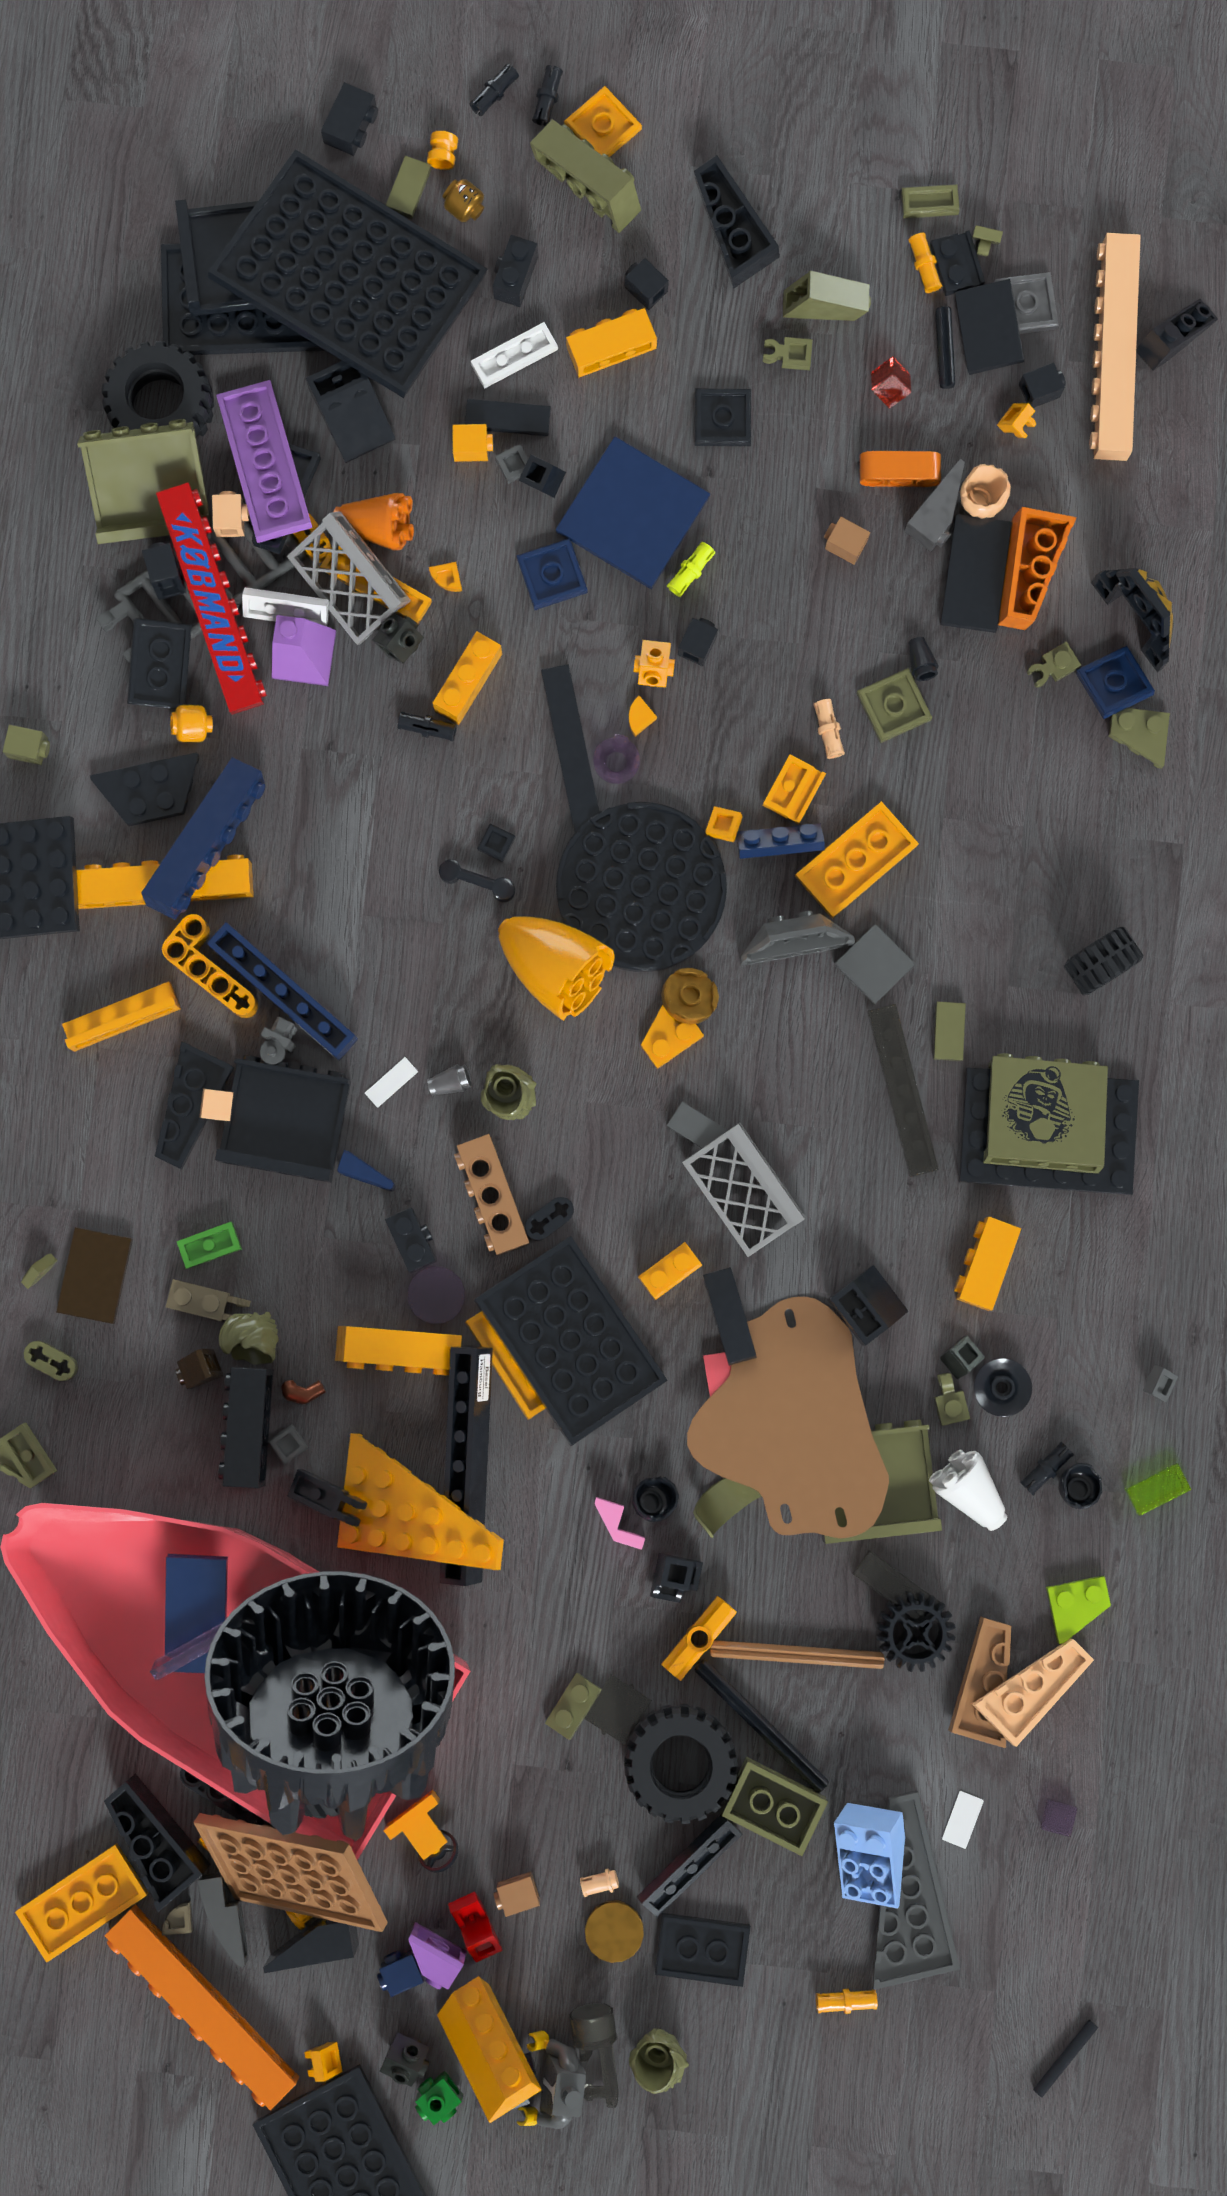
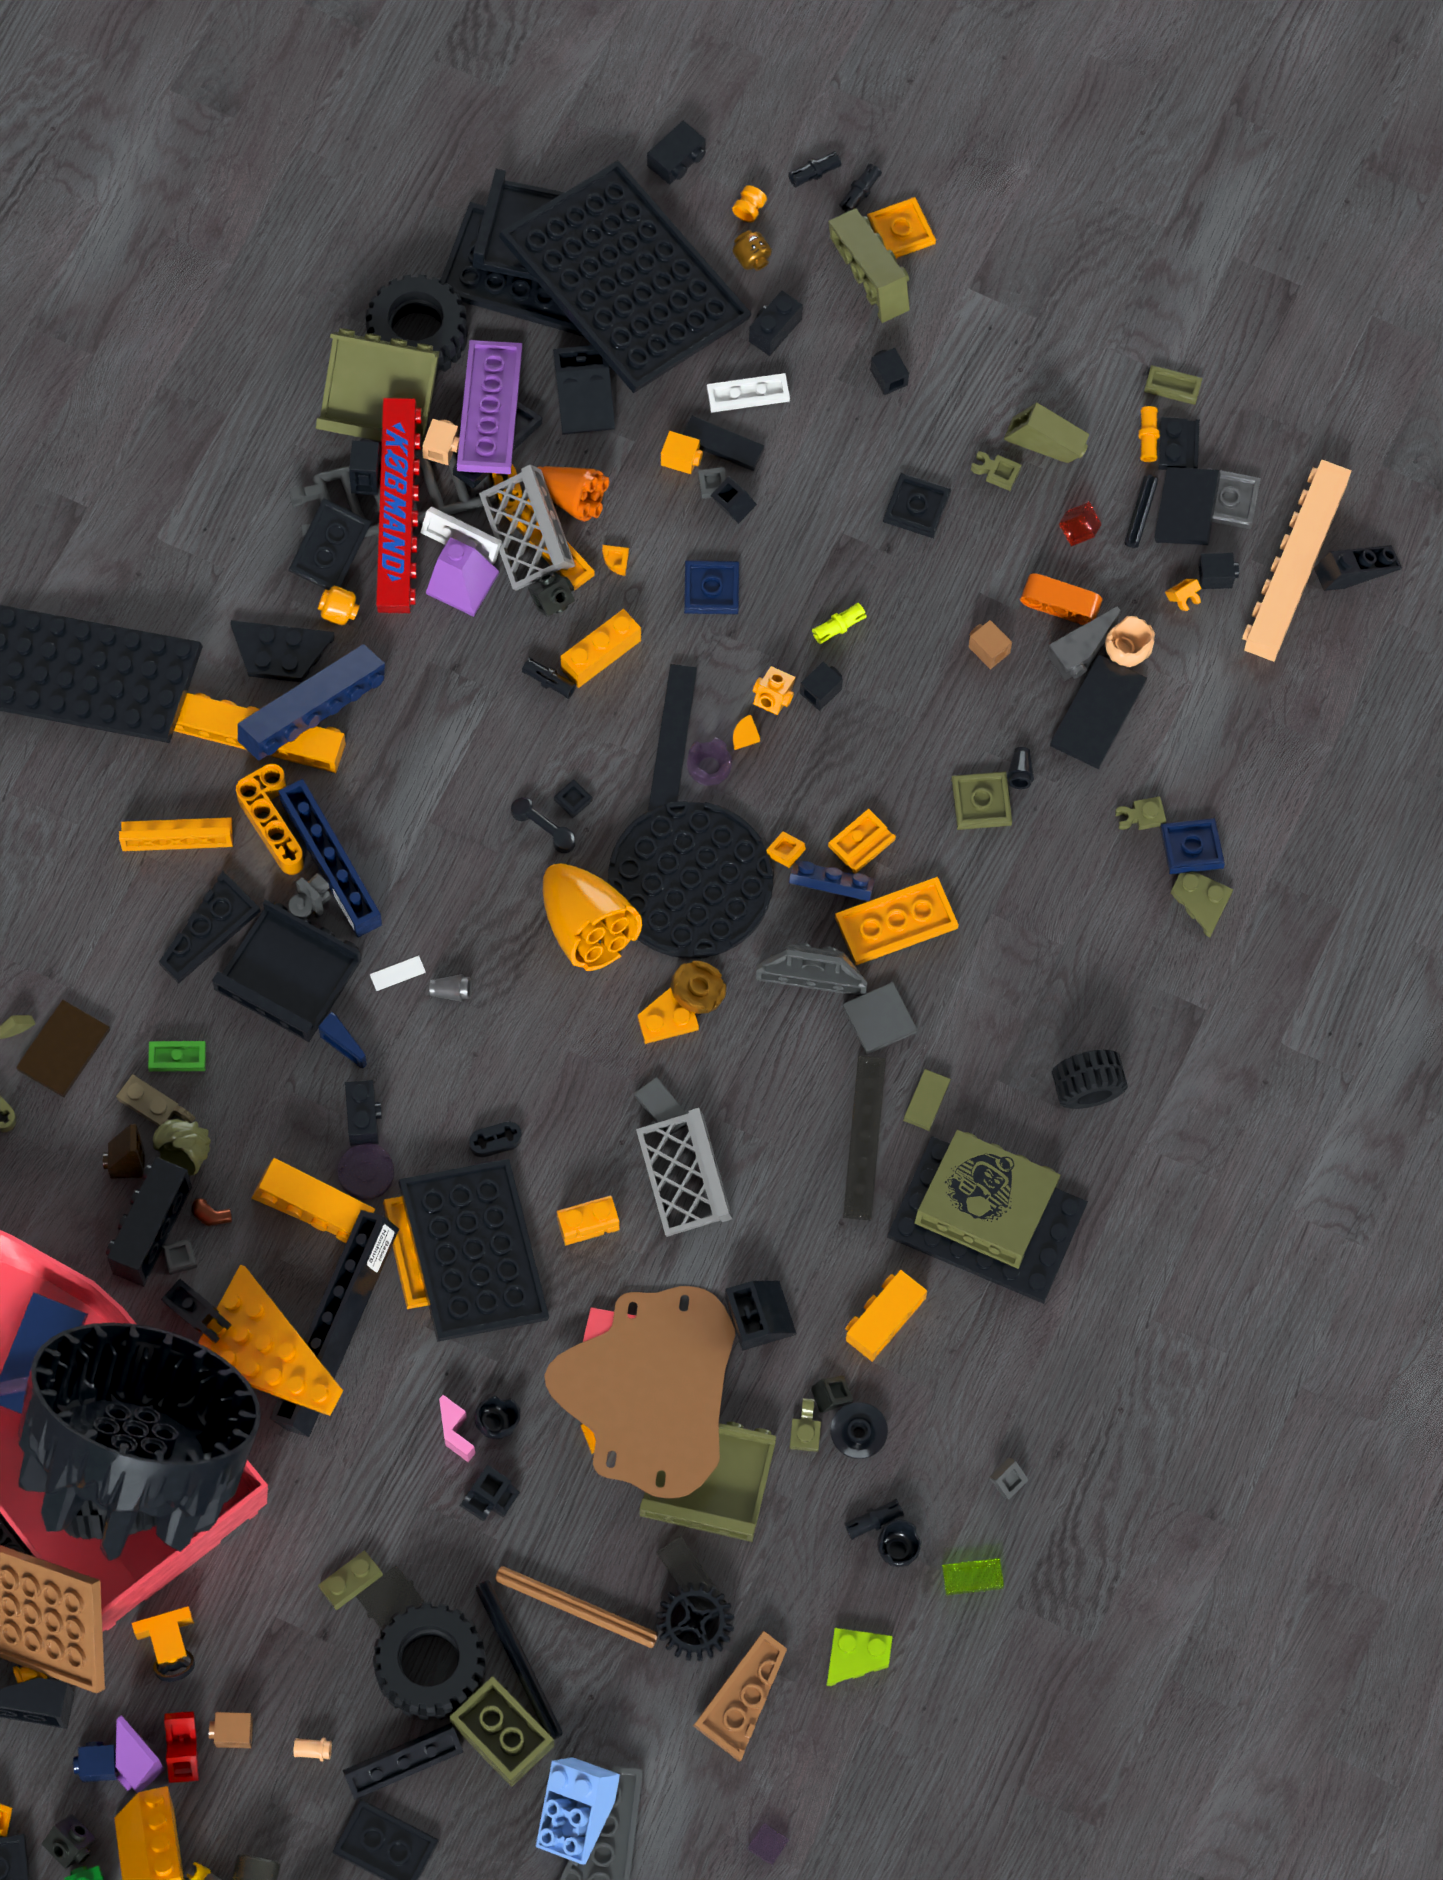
camera: 20 degrees right, 15 degrees down
(26, 745) = (184, 575): olive brick -> none
(216, 1104) = (232, 934): light nougat tile -> none
(409, 186) = (708, 224): olive tile -> none
(483, 1150) = (456, 1141): medium nougat brick -> none
(508, 1092) = (500, 1013): olive hair -> none
(611, 342) = (839, 409): light orange brick -> none
(614, 1931) = (309, 1799): pearl gold tile -> none
(633, 512) = (804, 559): dark blue tile -> none
(685, 1652) = (474, 1567): light orange piece -> none
(721, 1503) = (561, 1445): olive piece -> none
(729, 1316) = (628, 1278): black slope -> none
(736, 226) = (988, 354): black wedge -> none
(829, 728) = (913, 799): light nougat pin -> none
(962, 1819) = (676, 1816): white sticker -> none
(970, 1489) = (794, 1510): white cone -> none
(986, 237) = (1211, 430): olive tile -> none
(1031, 1693) = (780, 1716): light nougat wing -> none
(1032, 558) = (1154, 713): orange wedge -> none
(1148, 602) = (1227, 760): black wedge -> none

